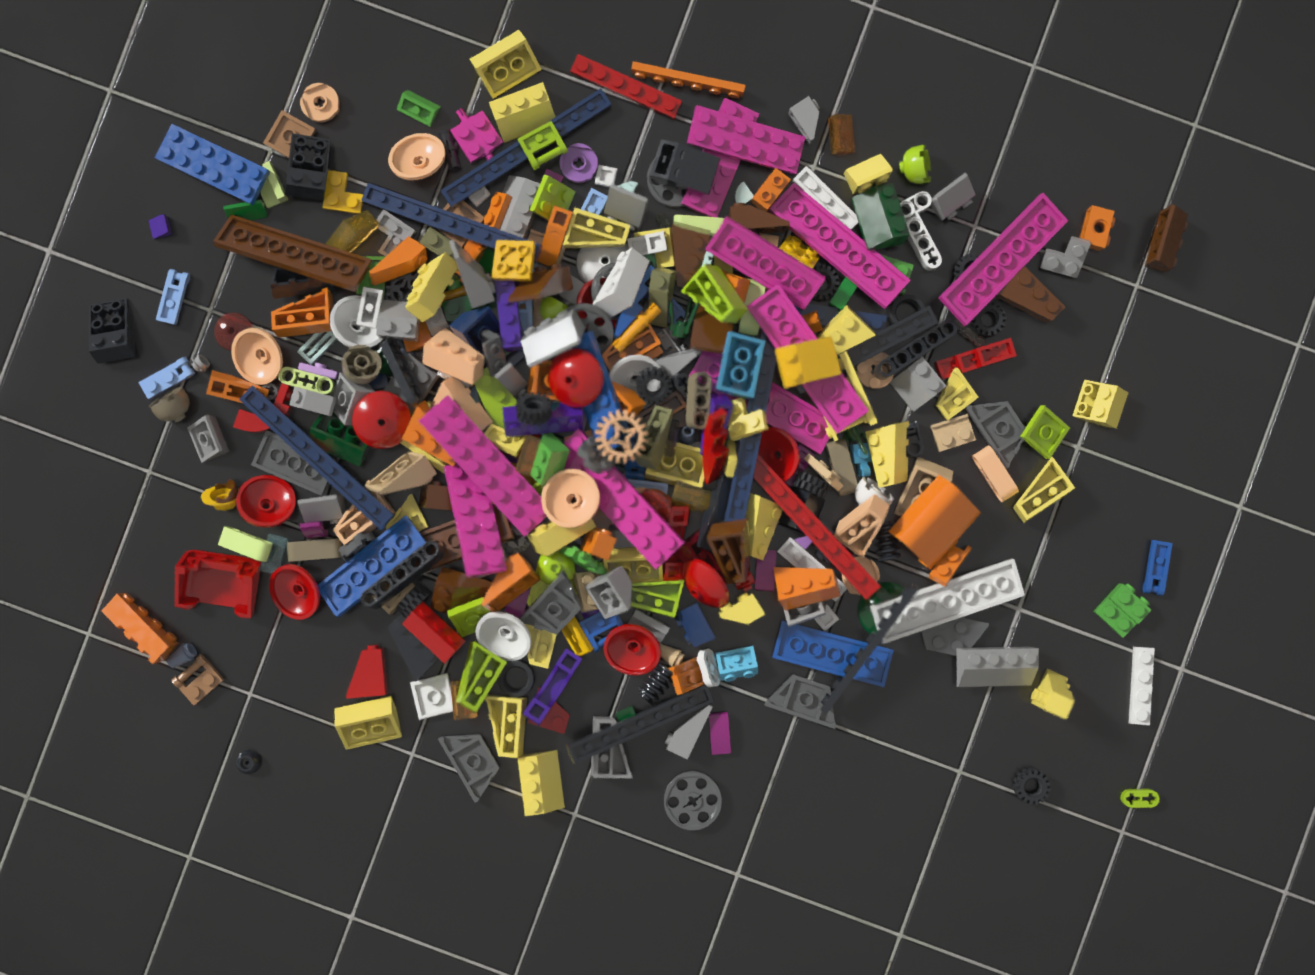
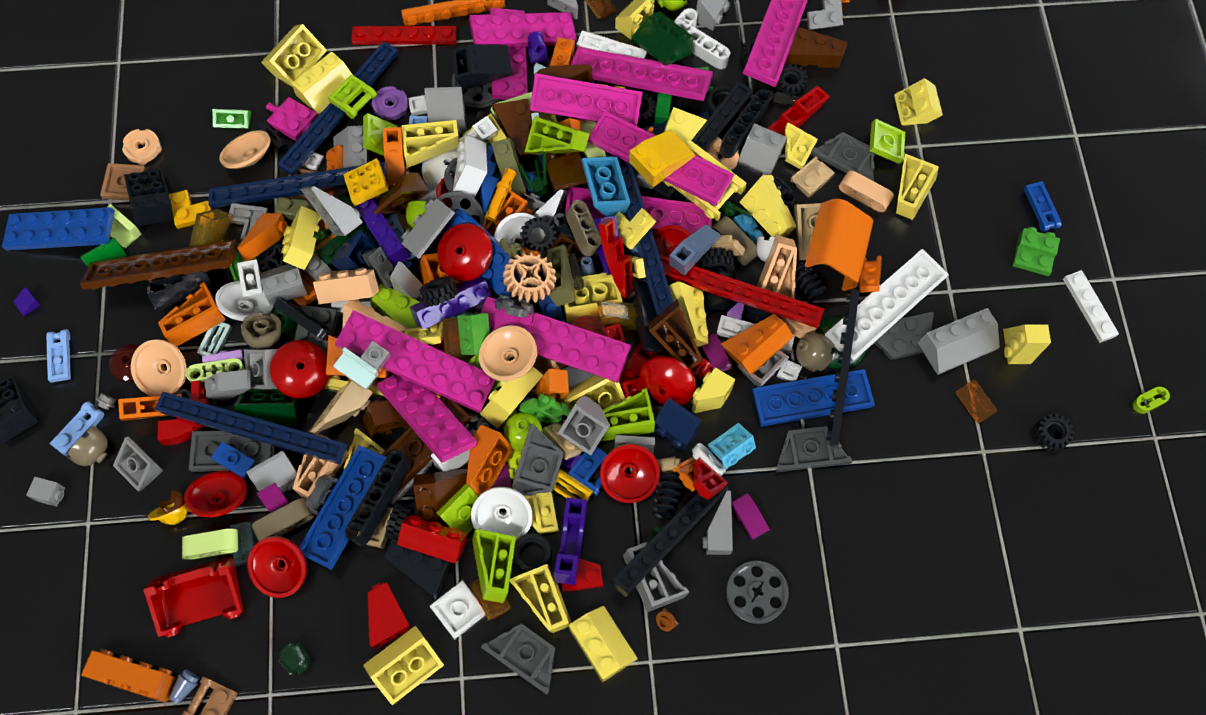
camera: 25 degrees left, 20 degrees down
(121, 428) = (45, 491): none -> light grey brick
(280, 676) = (294, 658): none -> clear green head
(292, 476) = (233, 460): none -> blue plate
(428, 451) = (356, 369): none -> light aqua panel
(449, 453) = (375, 356): none -> light grey brick
(603, 788) = (666, 620): none -> dark orange plate
(618, 403) = (513, 250): none -> olive plate
(695, 690) = (706, 480): none -> red wing
(750, 169) = (536, 48): none -> dark purple piece
(792, 469) = (692, 249): none -> sand blue slope
(855, 615) = (814, 351): none -> dark tan cylinder
(978, 725) = (976, 401): none -> clear orange slope

